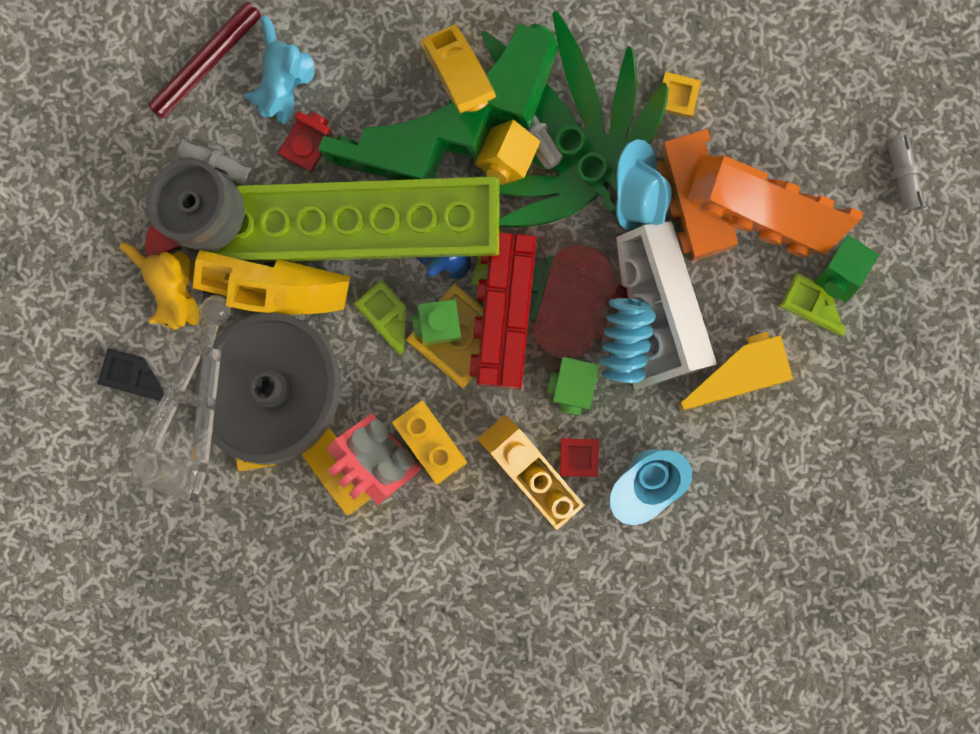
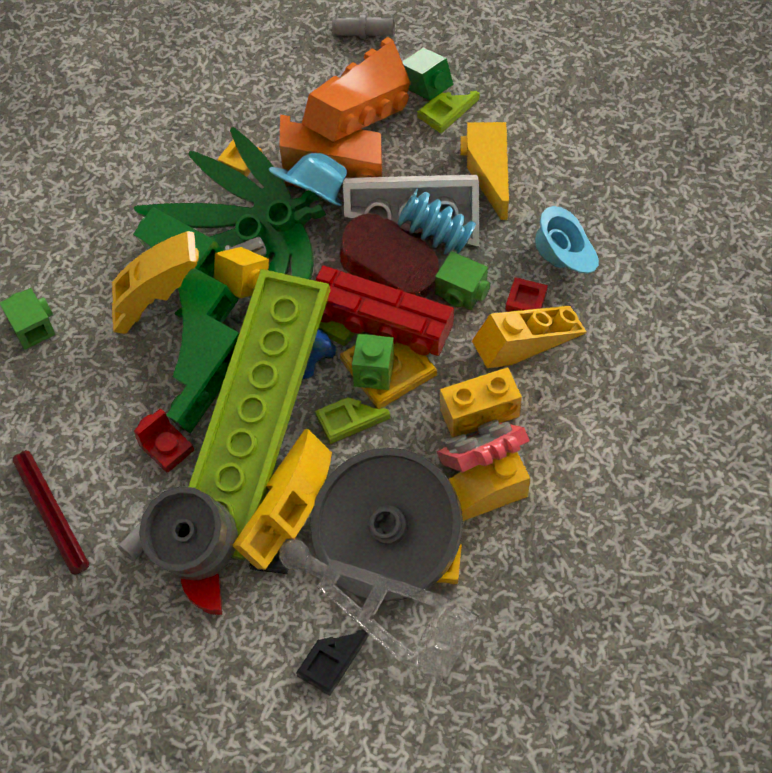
camera: 70 degrees left, 25 degrees down
(168, 280) = (246, 593): yellow animal -> none
(282, 70) = (91, 440): medium azure animal -> none

